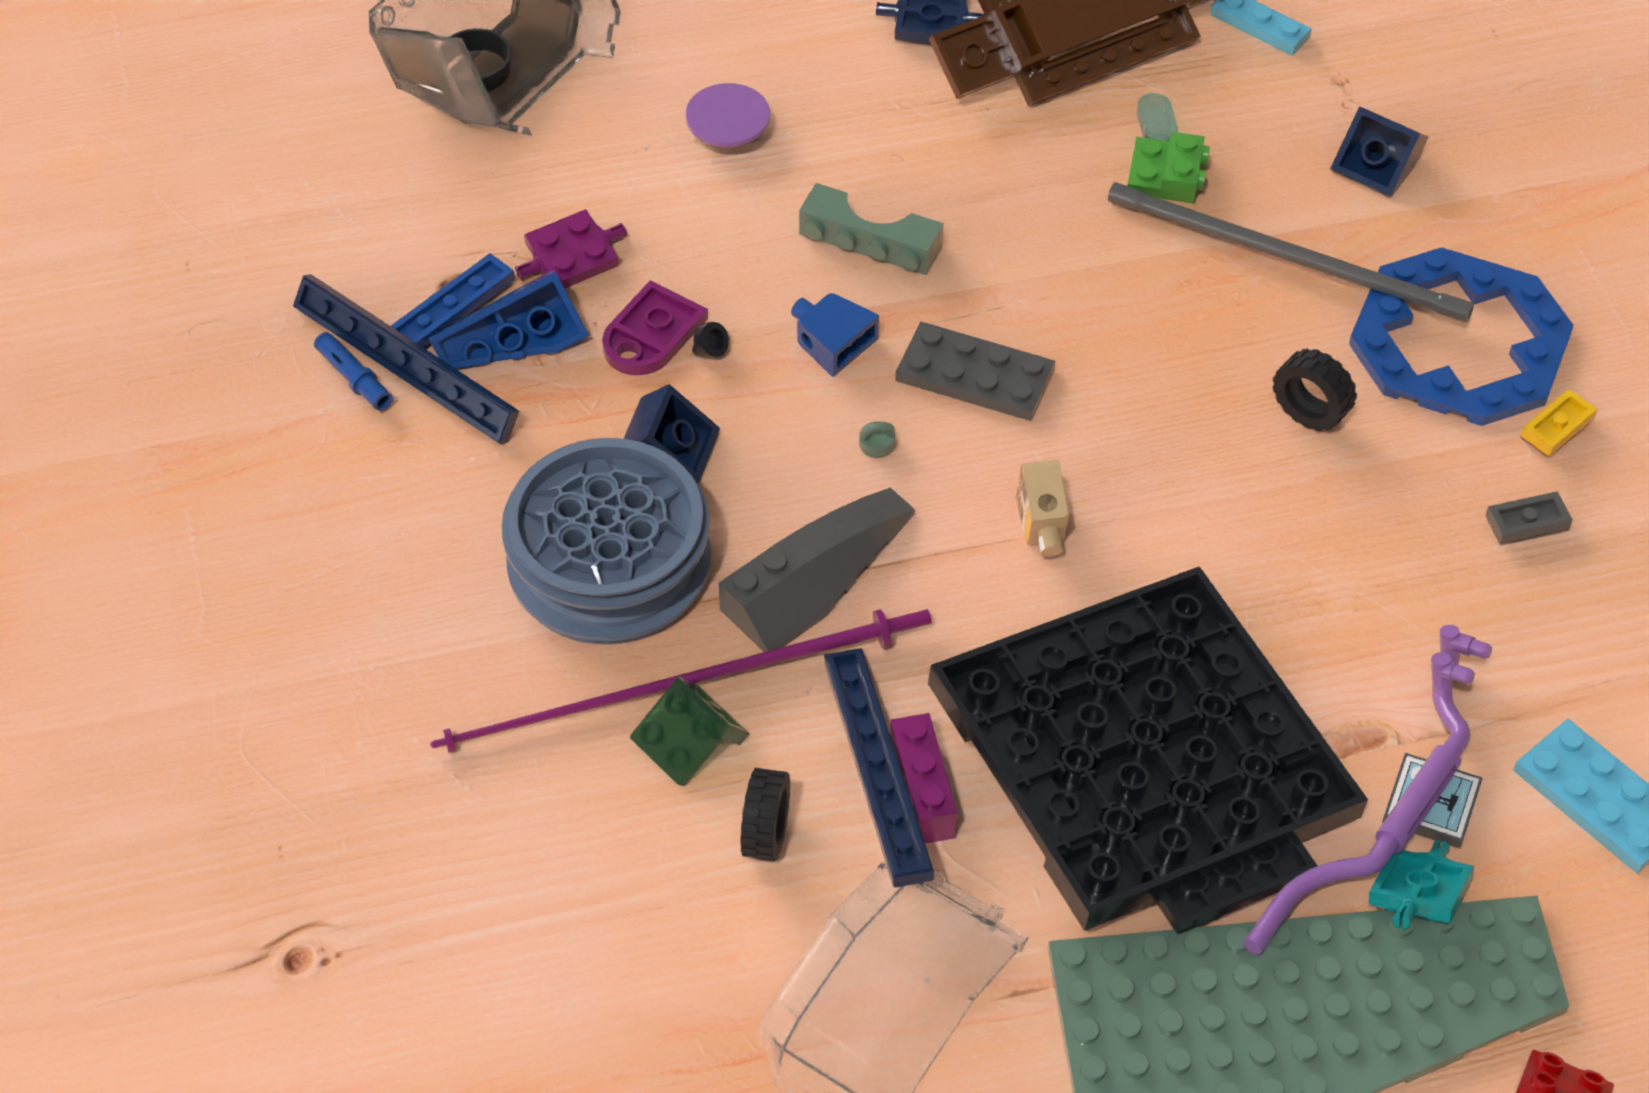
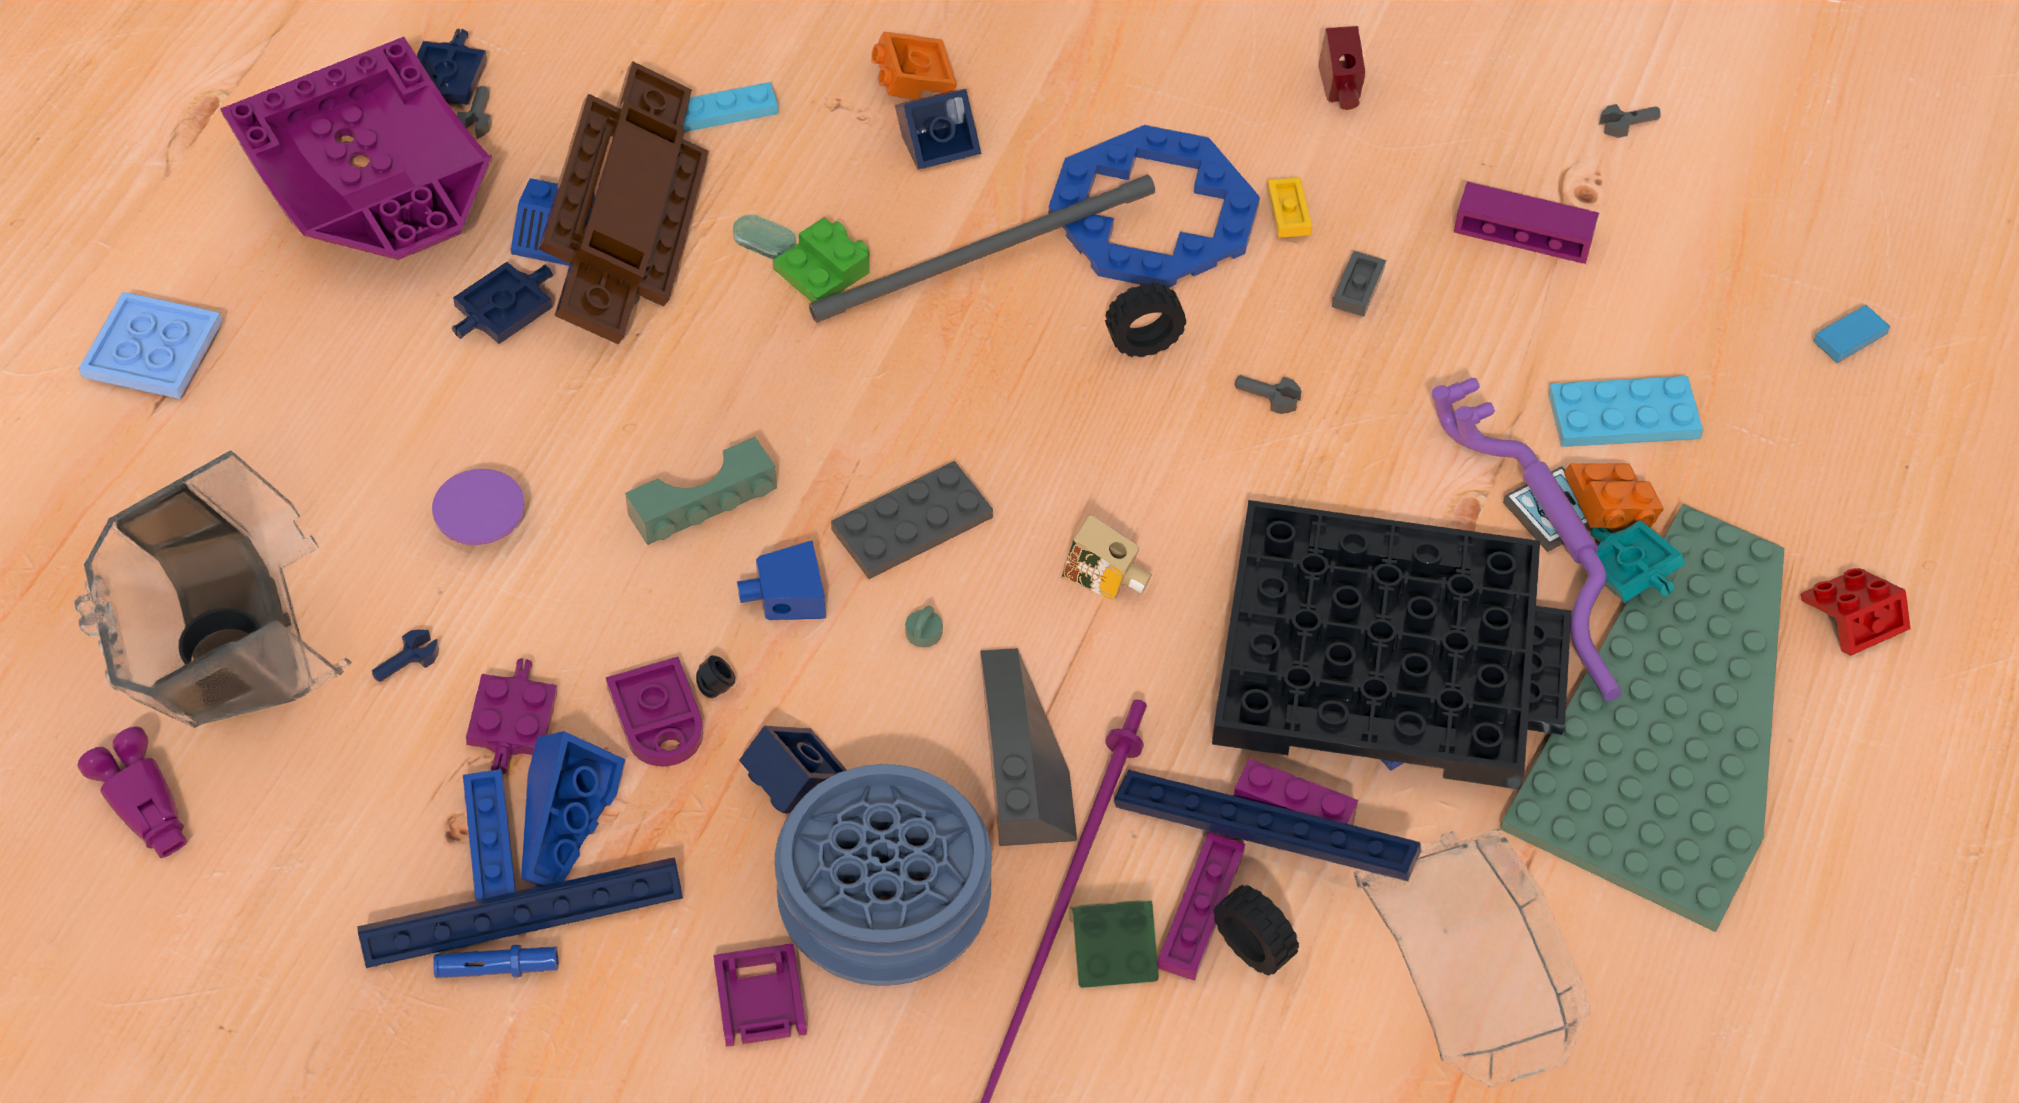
camera: 55 degrees left, 0 degrees up
(329, 96) = (137, 792): none -> magenta piece
(446, 546) = (762, 1004): none -> magenta container
(582, 167) = (410, 653): none -> dark blue bar
(805, 763) = (1194, 918): none -> magenta plate
(1339, 536) = (1274, 393): none -> dark grey bar
(1425, 97) = (912, 65): none -> orange plate
(1486, 832) = (1612, 495): none -> orange plate

